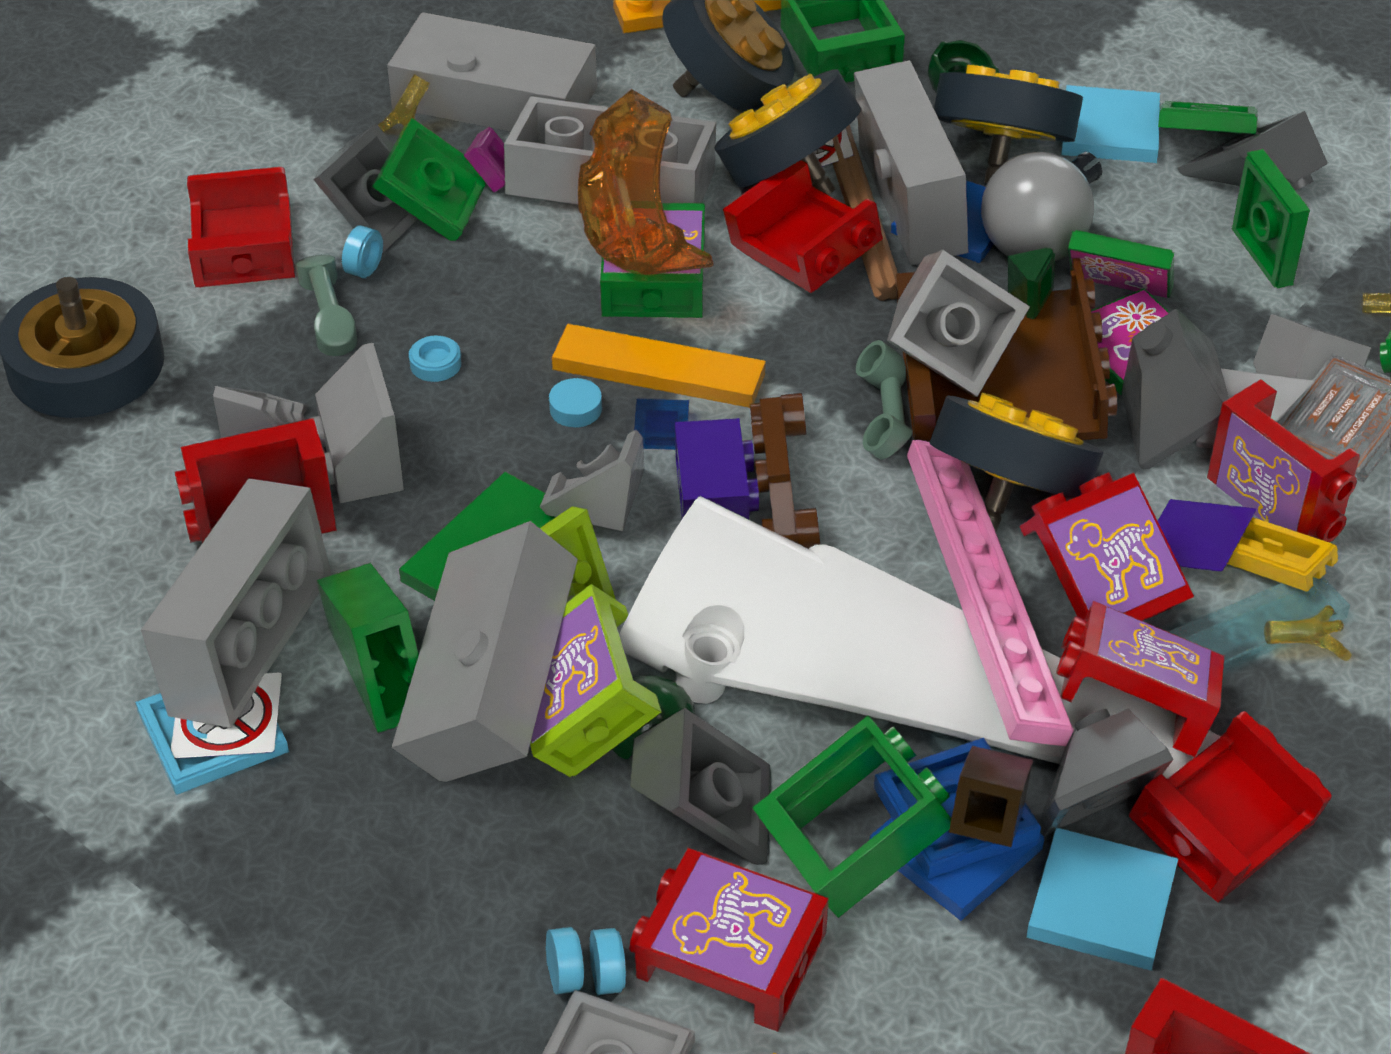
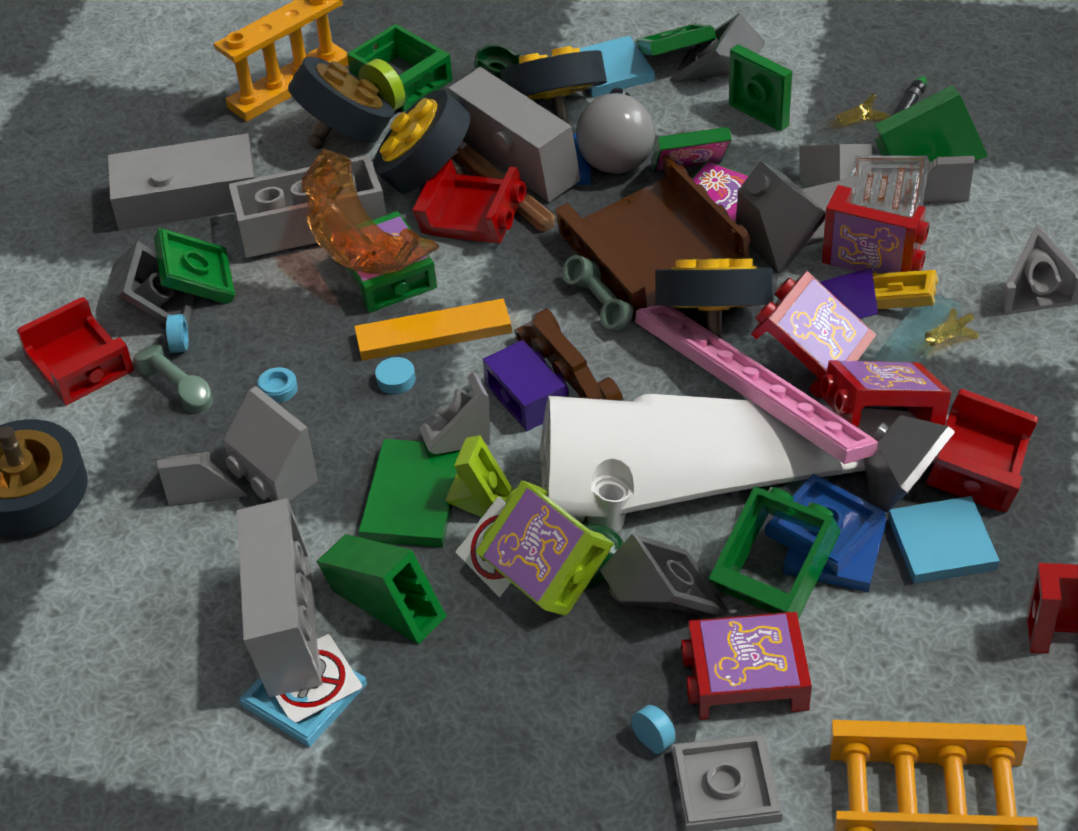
camera: 25 degrees left, 0 degrees up
(276, 454) = (209, 517): red panel -> none
(407, 104) = (137, 226): clear yellow bar -> none
(486, 654) = (474, 557): light grey brick -> none
(487, 158) = (224, 237): magenta tile -> none
(607, 961) = (683, 715): medium azure tile -> none
(657, 419) = (459, 364): clear blue tile -> none
(802, 40) = (386, 80): none -> lime piece
(955, 321) = (620, 221): light grey slope -> none
(991, 796) = (857, 503): dark brown brick -> none
(1032, 278) = (639, 181): dark green slope -> none

